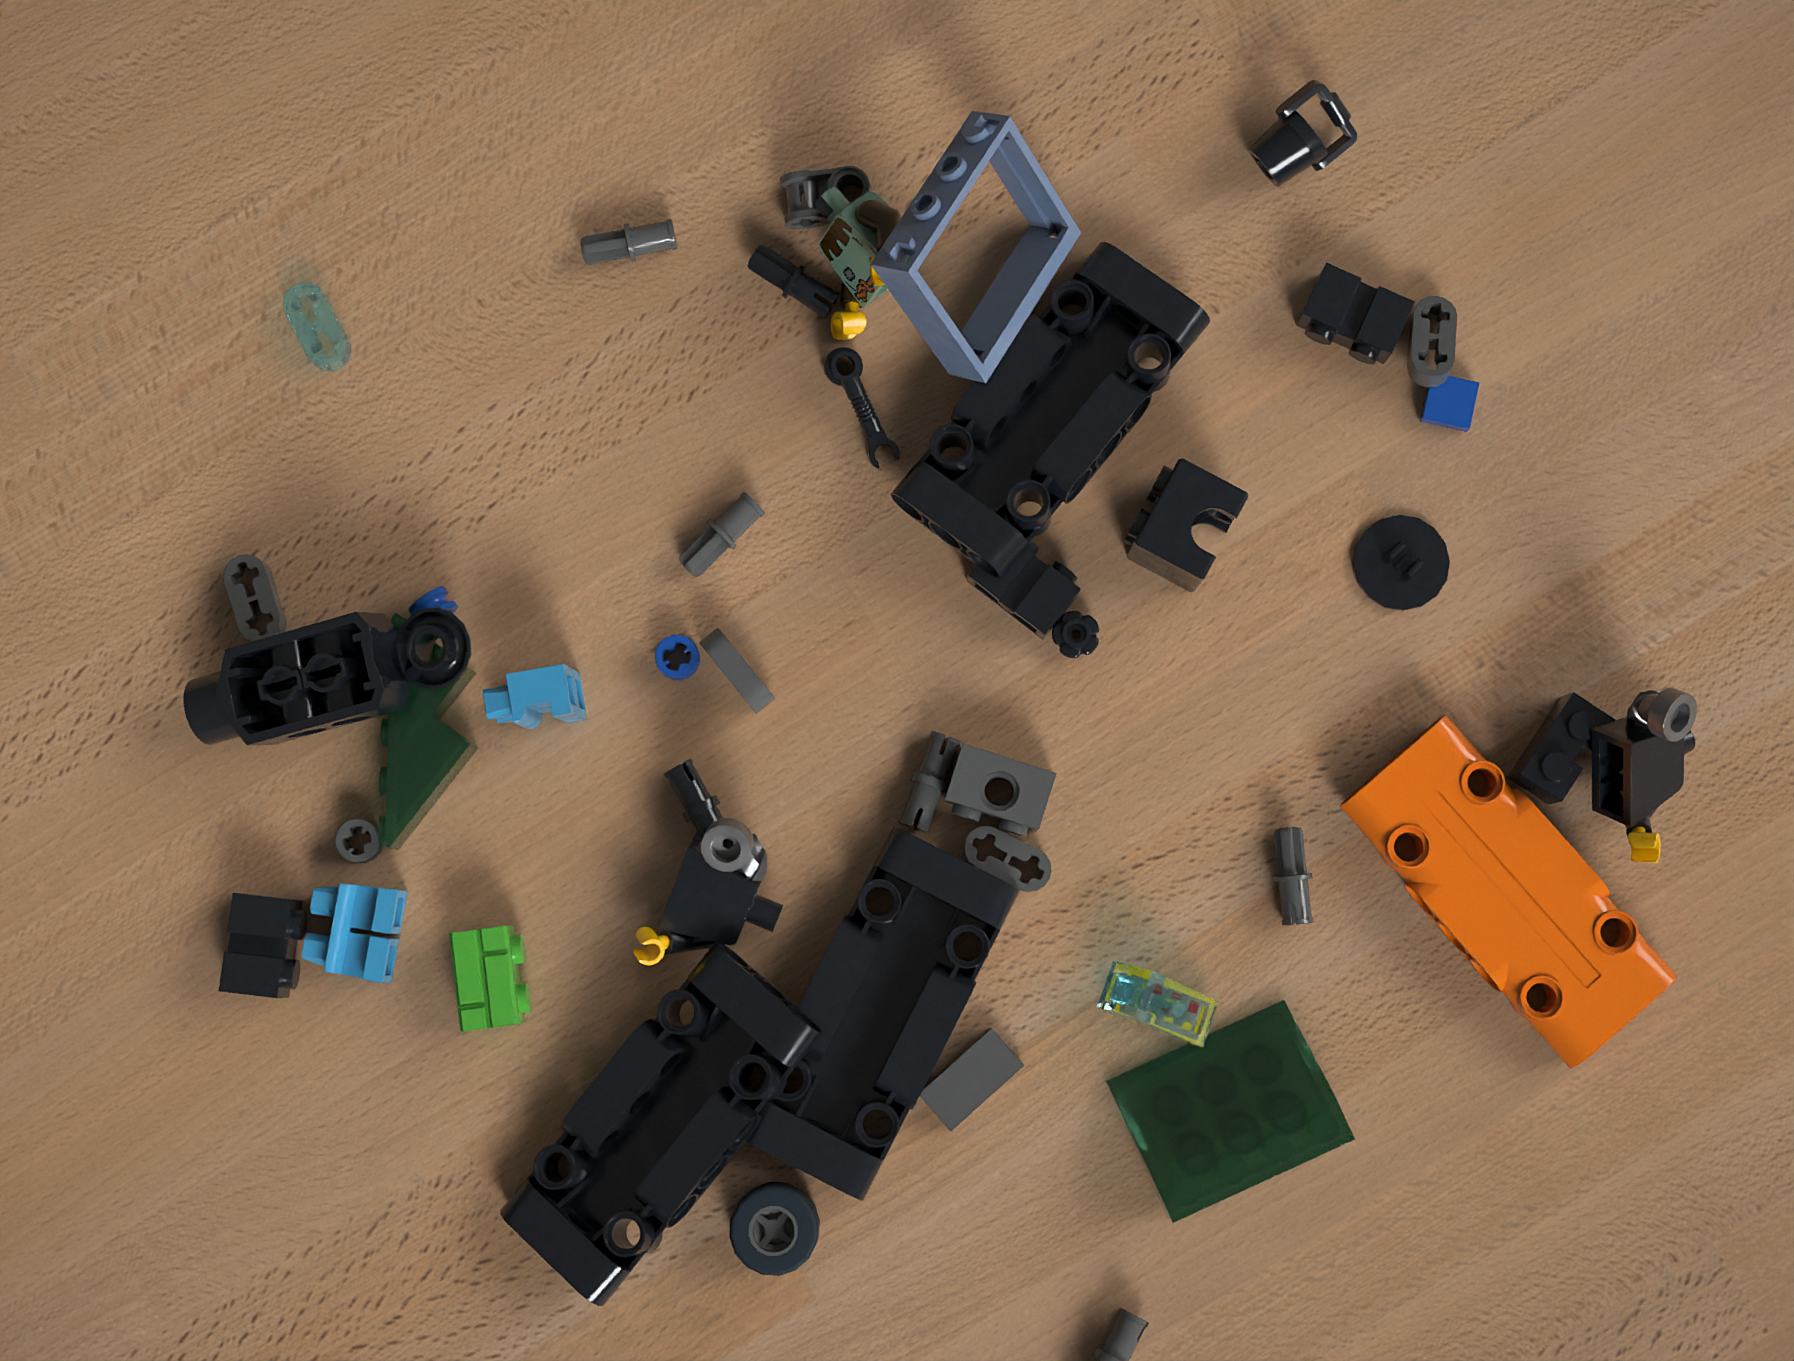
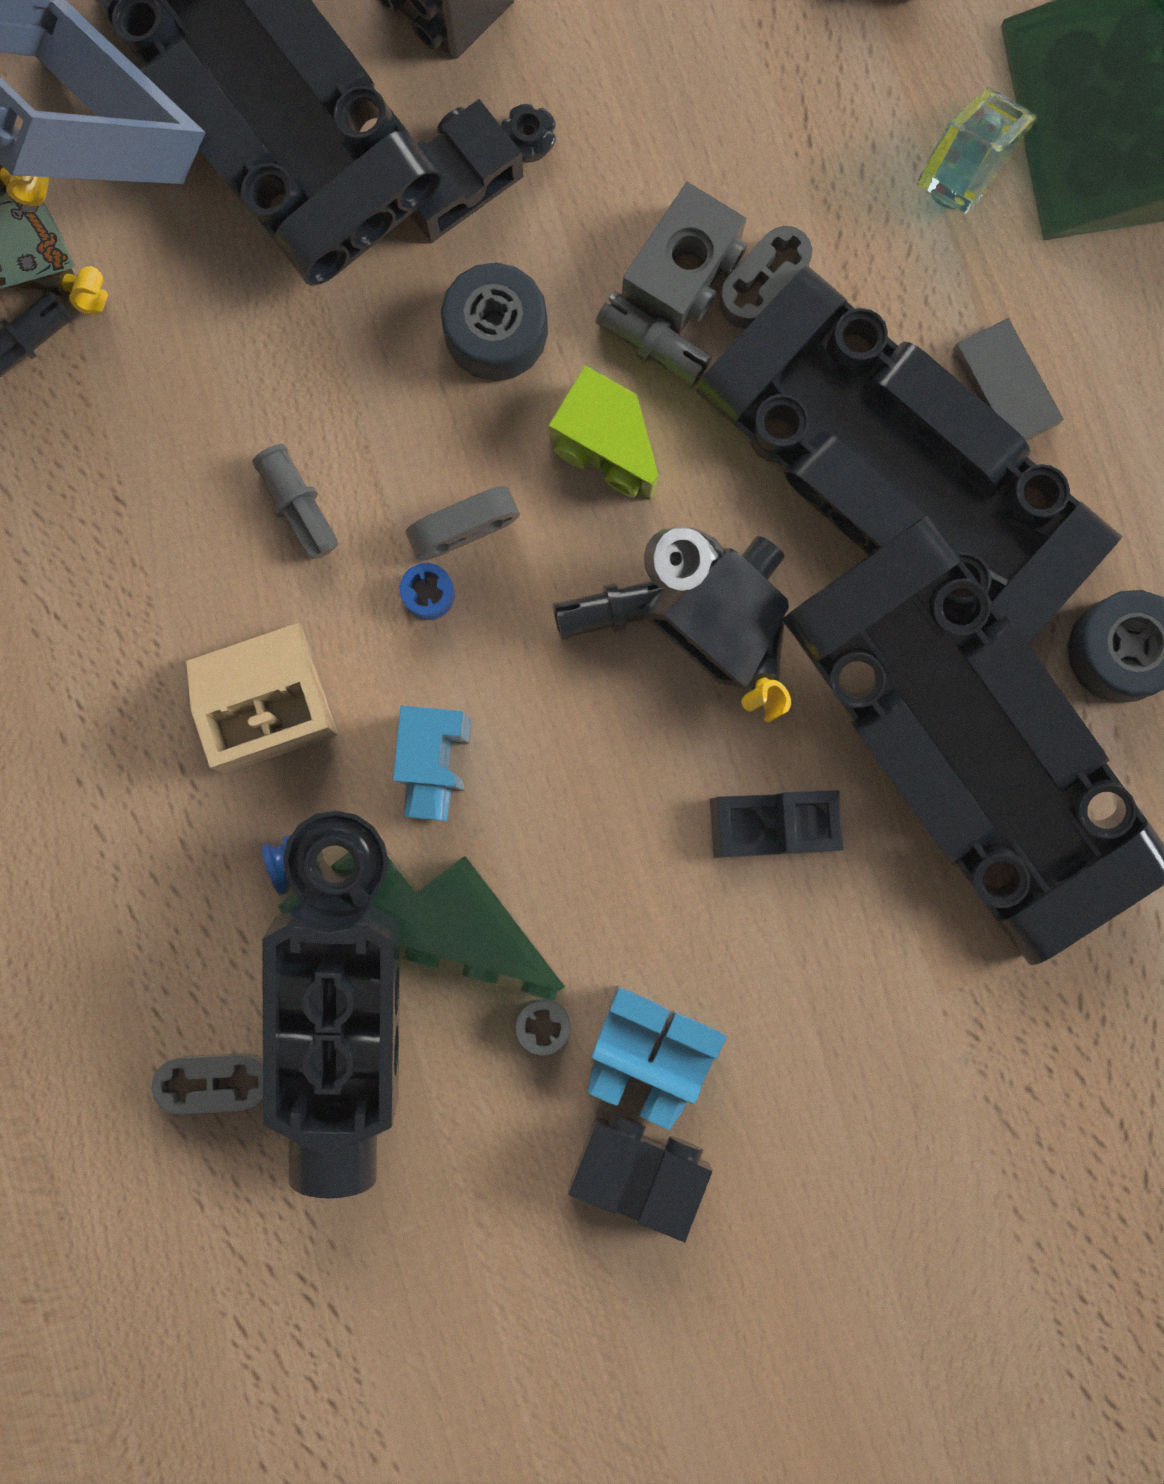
camera: 80 degrees left, 0 degrees up
(489, 977) = (751, 908): bright green brick -> none
(555, 550) = (258, 700): none -> tan slope
(563, 982) = (776, 824): none -> black slope
(841, 764) = (606, 429): none -> lime slope
(859, 399) = (146, 318): black brick -> none
(902, 665) = (498, 345): none -> black wheel

